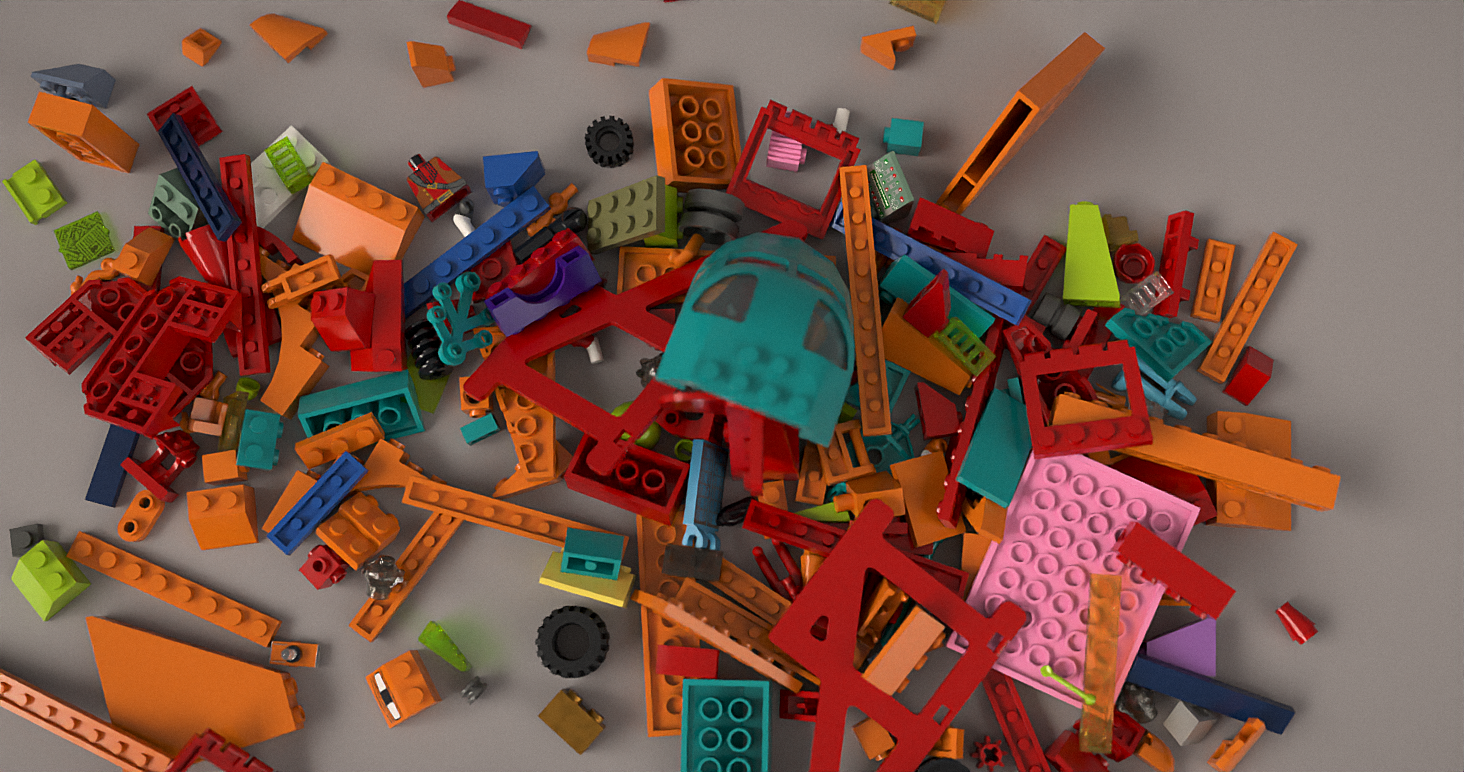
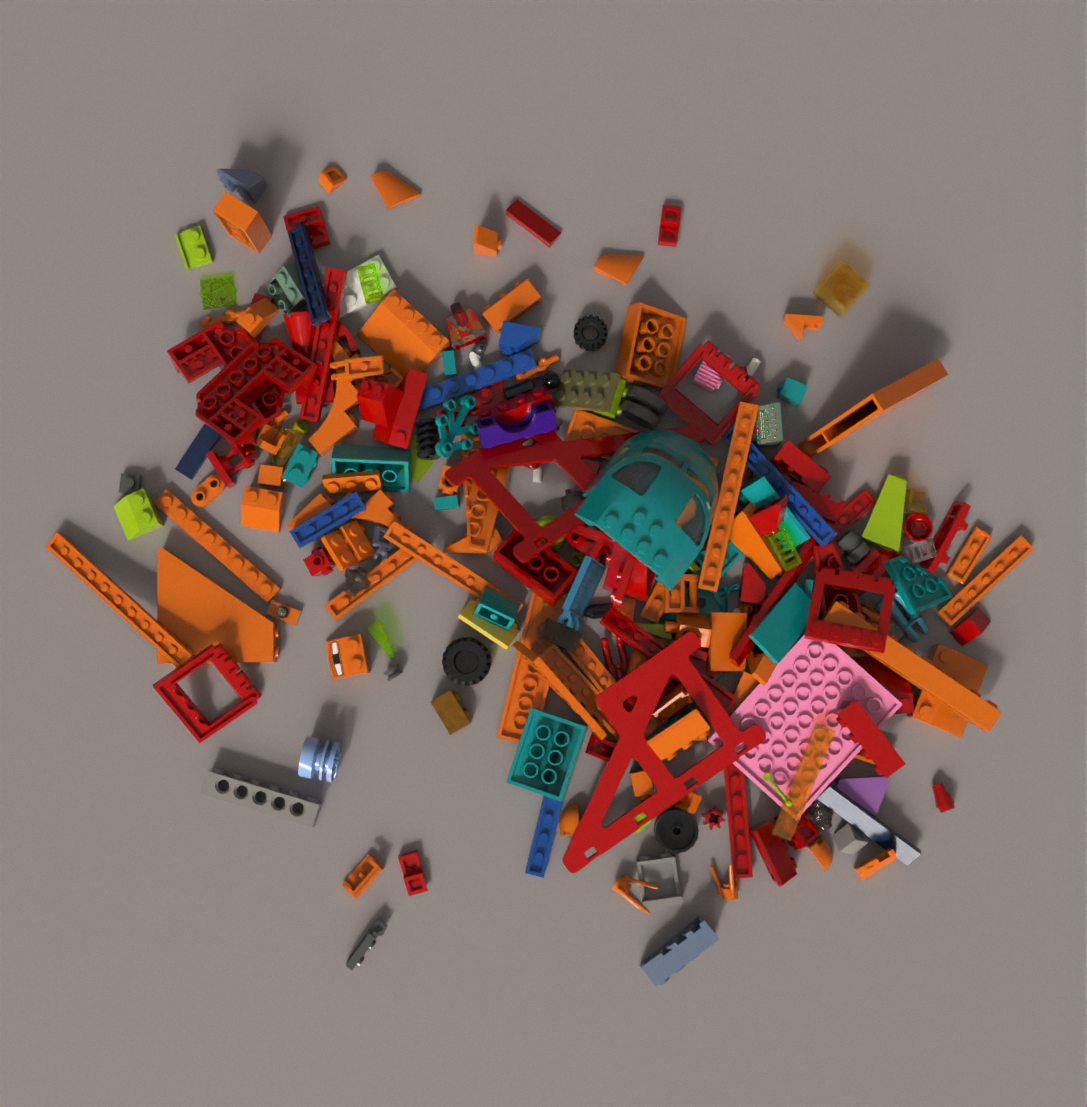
camera: 15 degrees right, 5 degrees up
(404, 512) = (381, 543): none -> sand blue plate
(429, 239) = (449, 363): none -> teal piece
(492, 136) = (511, 305): none -> orange brick
(687, 661) = (537, 697): red slope -> none
(690, 251) = (622, 426): orange arm -> none

